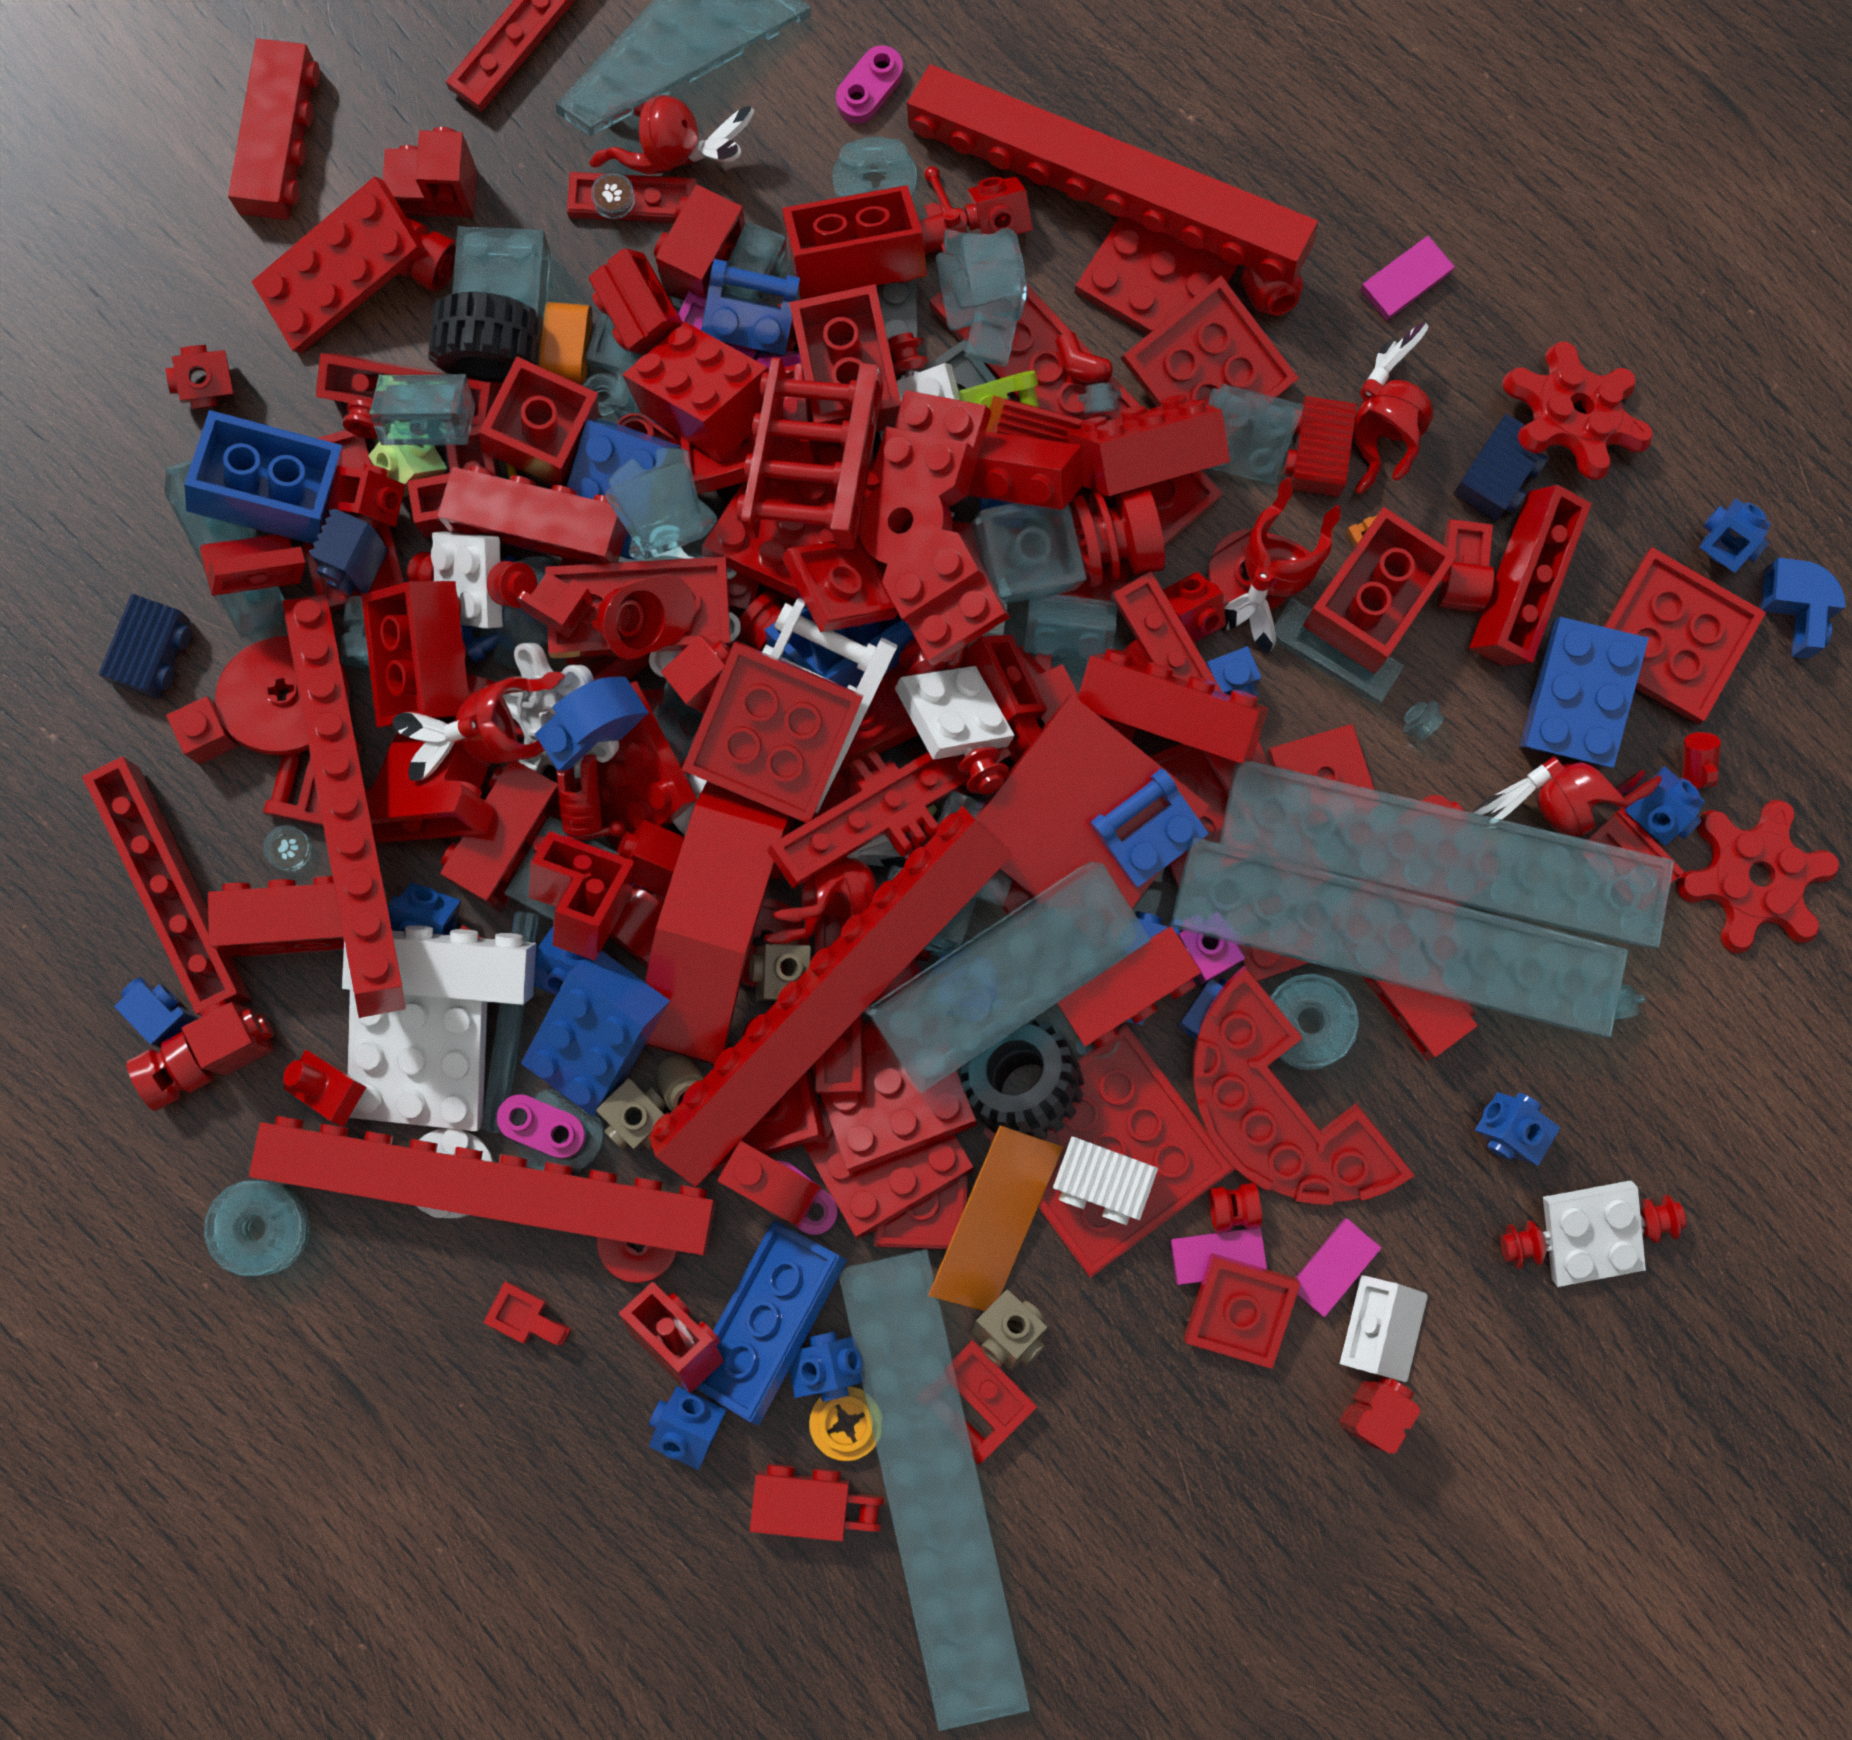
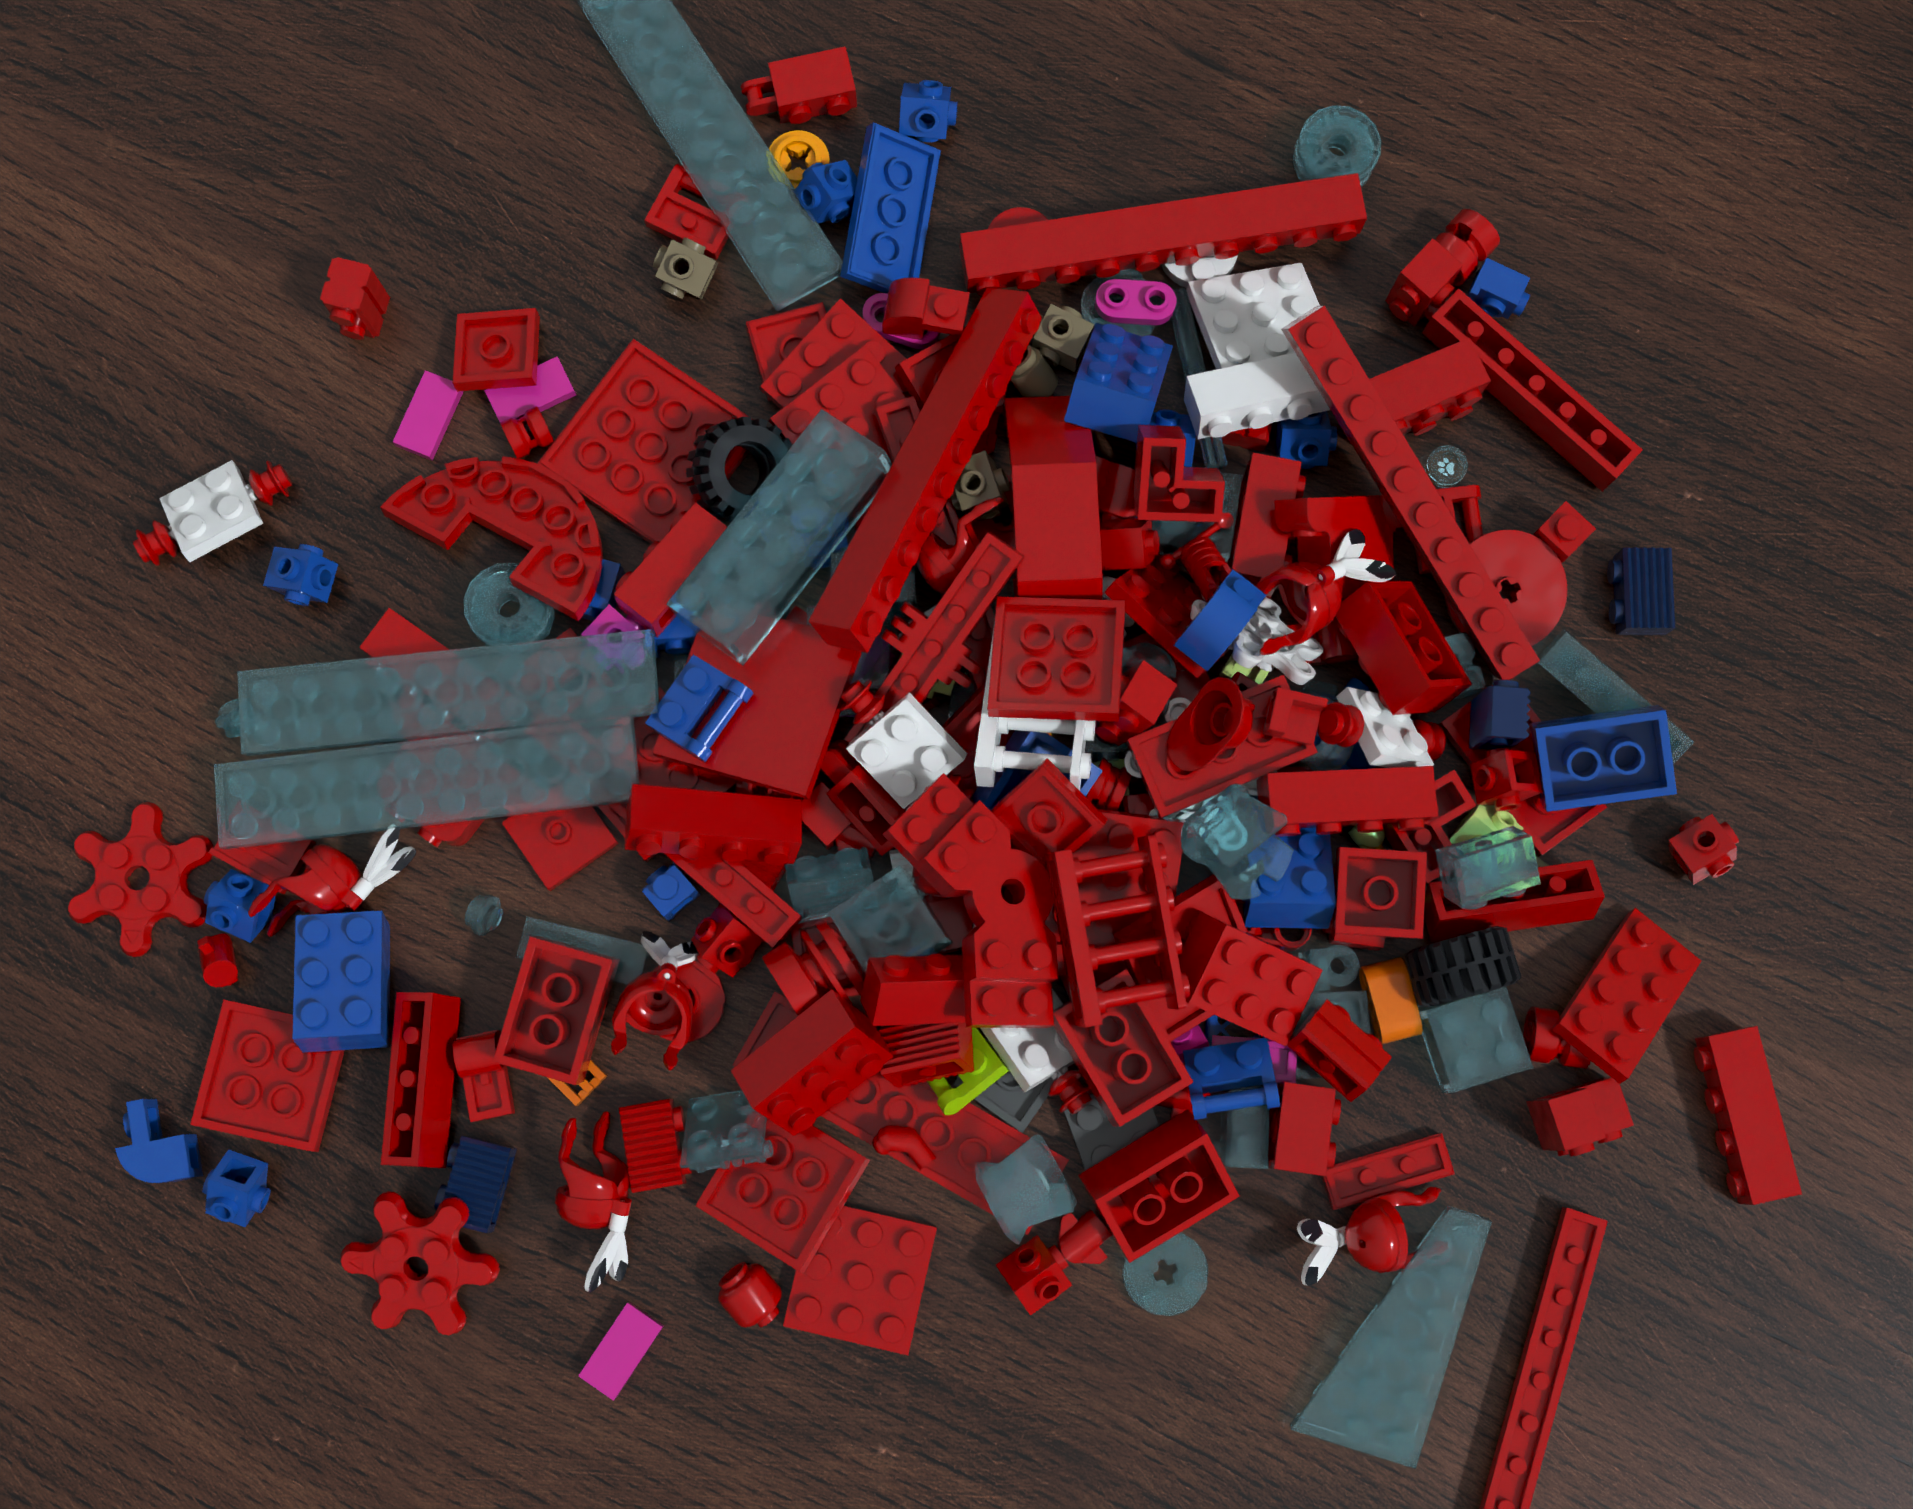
camera: 160 degrees right, 0 degrees up
(251, 564) = (1581, 680): red panel -> none
(323, 1087) = (1329, 273): red tile -> none
(359, 420) = (1546, 854): red bush -> none
(520, 1315) = (1096, 155): red plate -> none
(613, 195) = (1403, 1159): tile -> none
(672, 1337) = (964, 170): red brick -> none
(870, 81) = (1205, 1370): dark pink plate -> none
(950, 216) = (1077, 1247): red hinge -> none
(990, 339) = (996, 1133): clear light blue plate -> none
(995, 1219) = (726, 350): orange piece -> none
(1099, 398) = (874, 1110): clear light blue plate -> none
(1104, 1179) = (645, 411): white brick -> none
(1111, 174) = (939, 1341): red brick -> none
(1384, 1328) = (372, 377): white panel -> none

